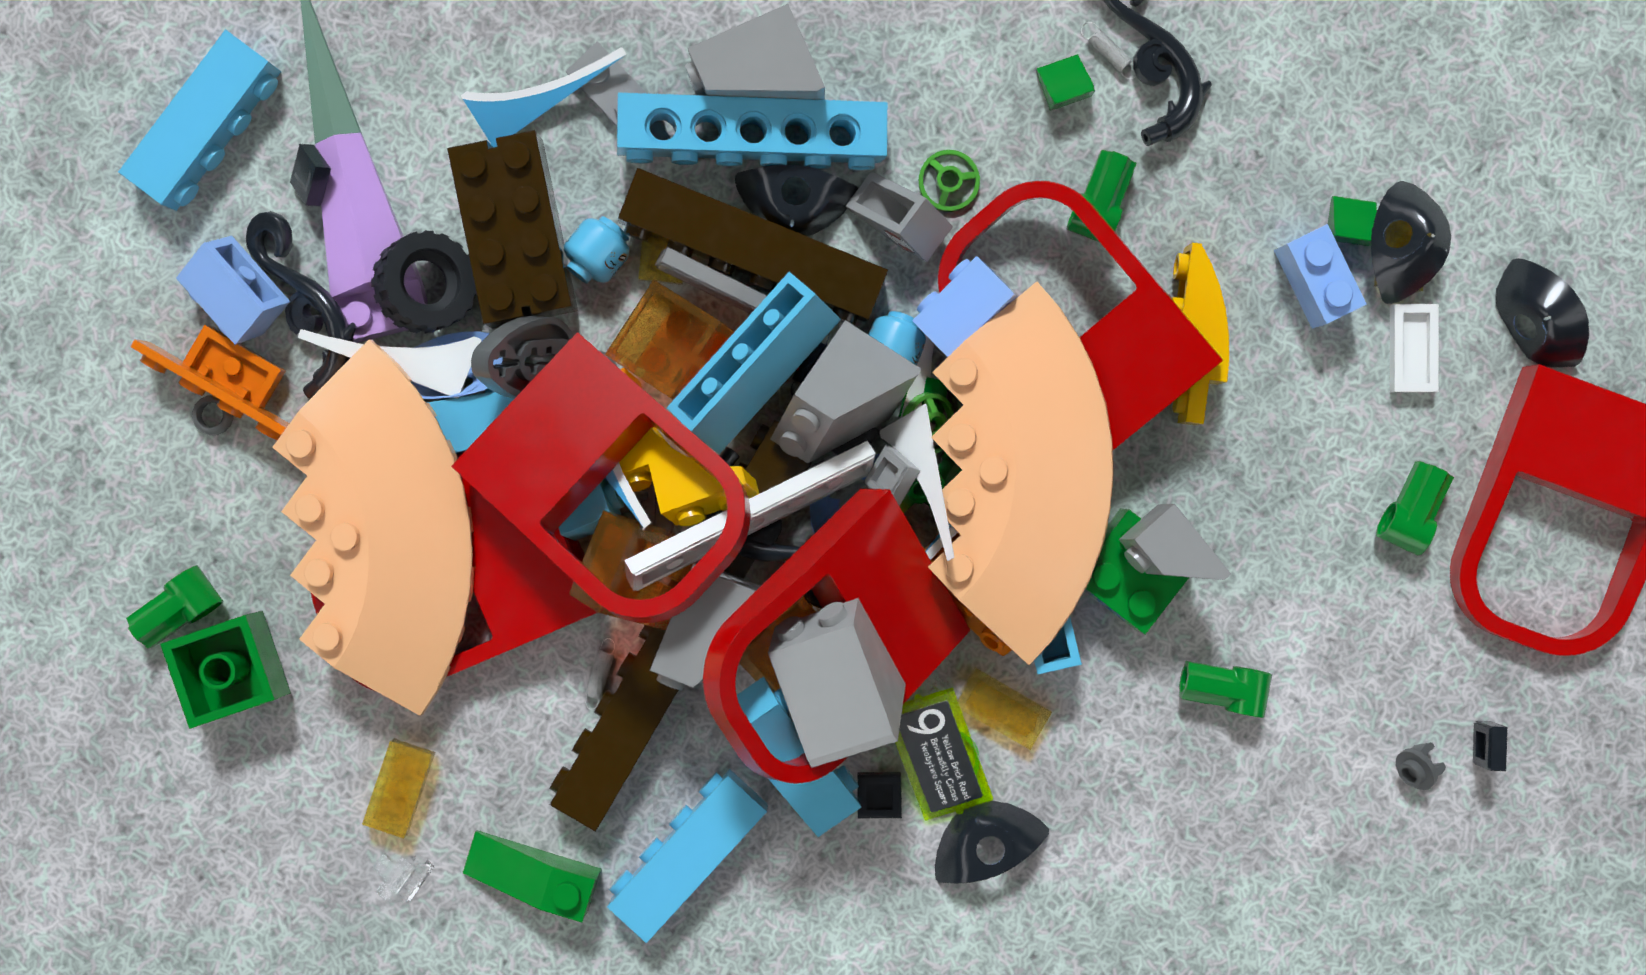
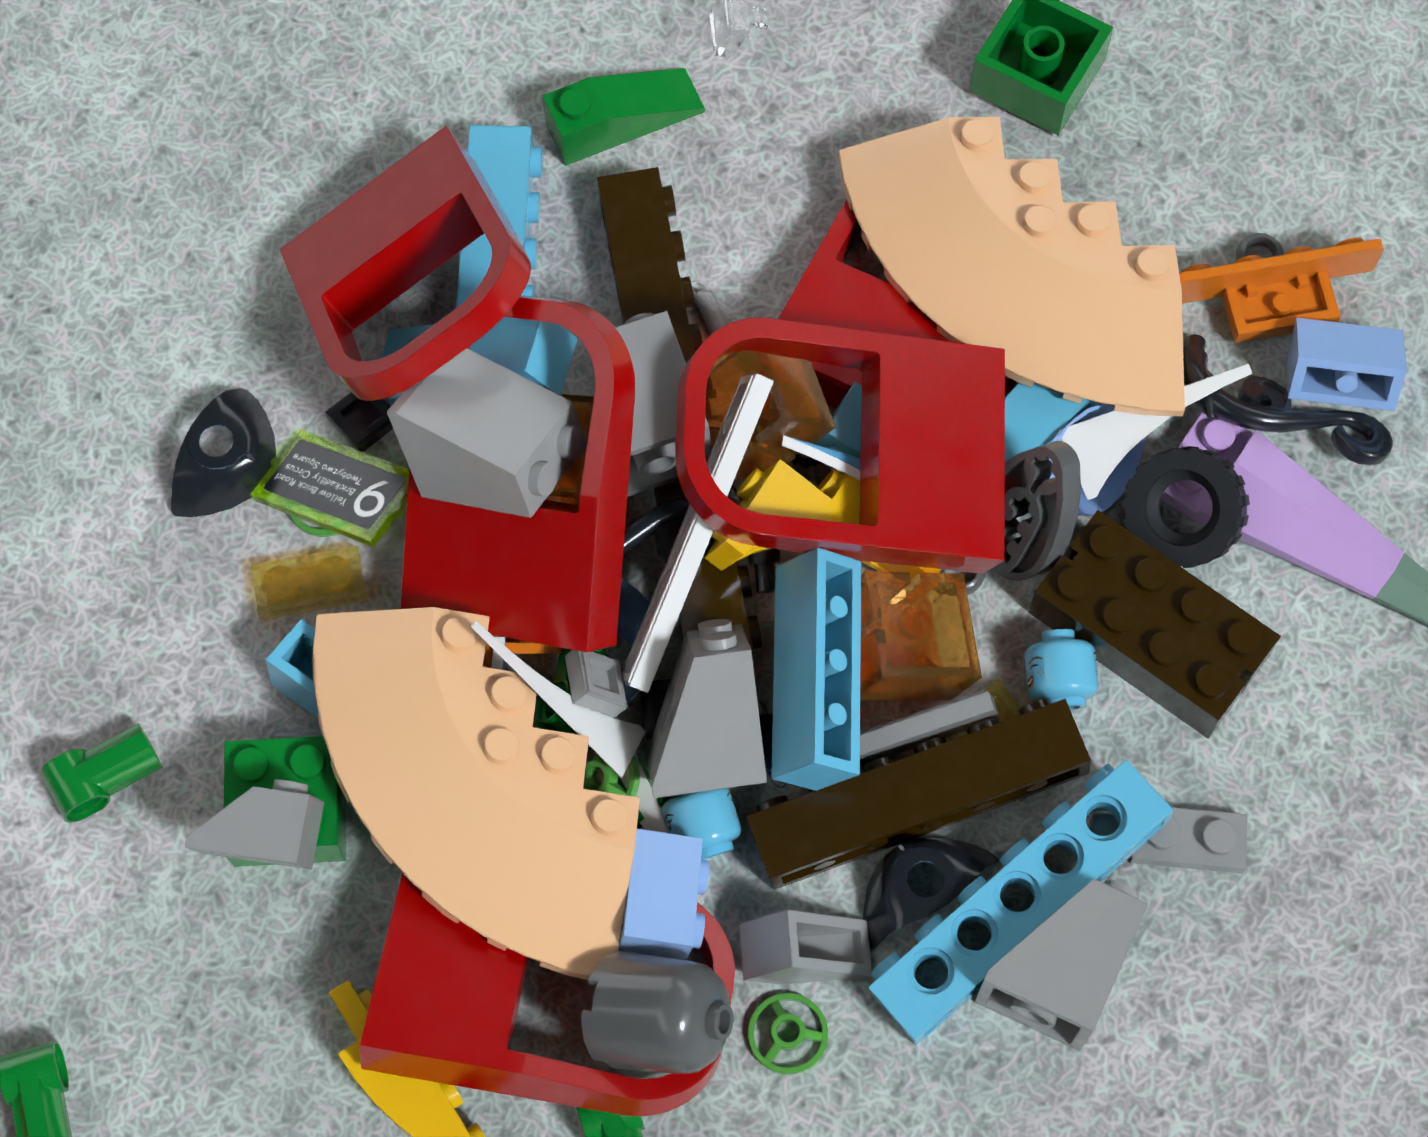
camera: 145 degrees right, 20 degrees down
(184, 601) = (1132, 84): green piece -> none
(310, 175) = (1379, 518): black tile -> none
(398, 788) = (803, 88): clear yellow plate -> none
(511, 111) = (1260, 736): dark azure sticker -> none
(781, 894) = (387, 243): none -> red window
(1030, 234) = (656, 1014): none -> dark grey cylinder

